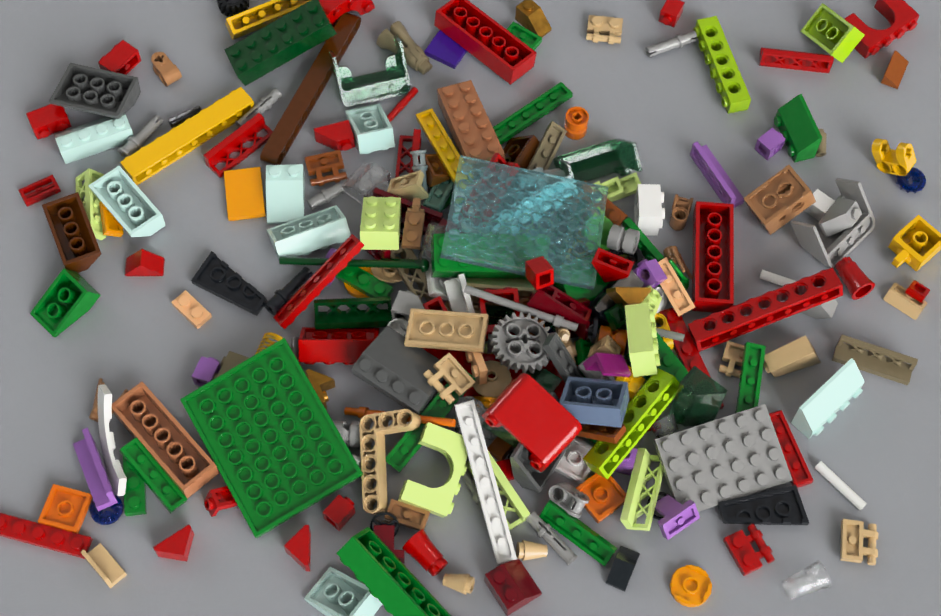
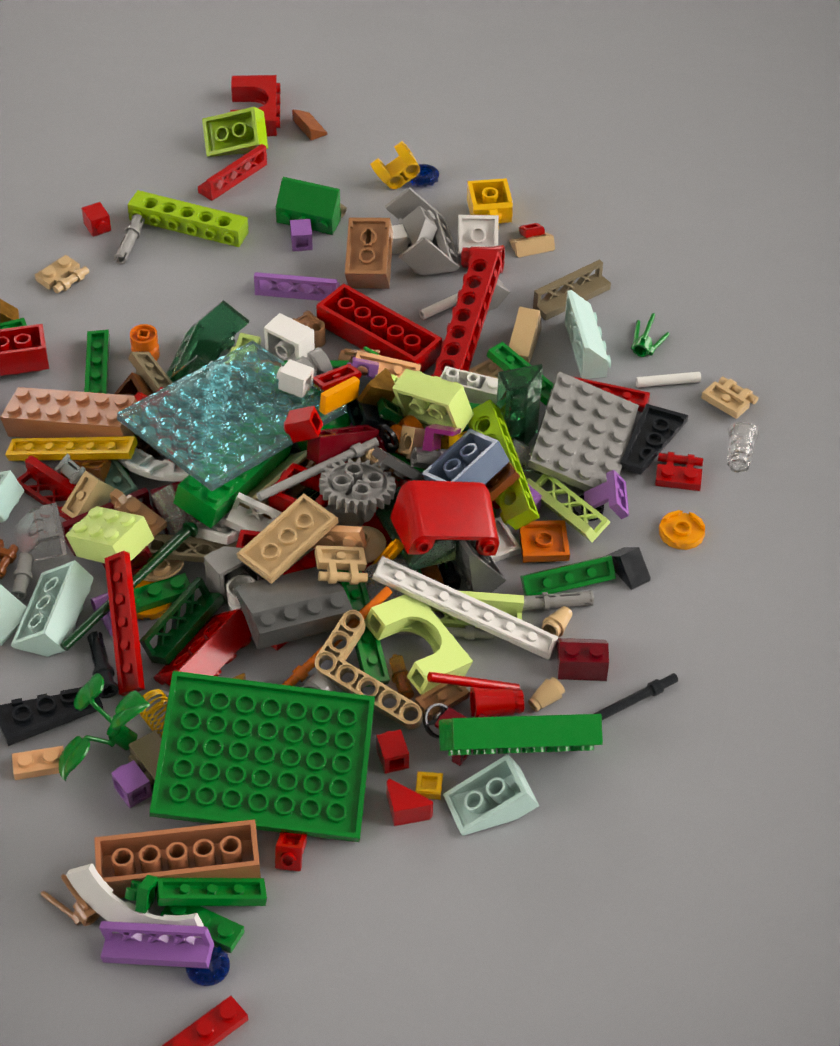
camera: 55 degrees left, 15 degrees down
(65, 508) = (174, 1003): orange plate -> none
(104, 565) = (275, 1001): tan panel -> none
(119, 438) = (142, 892): none -> green tile
(177, 545) = (313, 915): red slope -> none
(236, 335) = (118, 733): none -> green plant
(328, 552) = (429, 784): none -> yellow tile
(411, 474) = (400, 676): none -> clear orange axle
(427, 528) = (469, 681): none -> red bar
(572, 499) = (535, 560): light grey piece -> none
(585, 238) = (295, 378): none -> white brick
(593, 276) = (339, 395): none -> light orange tile
(701, 352) = (476, 386): none -> white slope
(861, 444) = (643, 345): none -> green plant
(874, 257) = (477, 231): none -> white tile

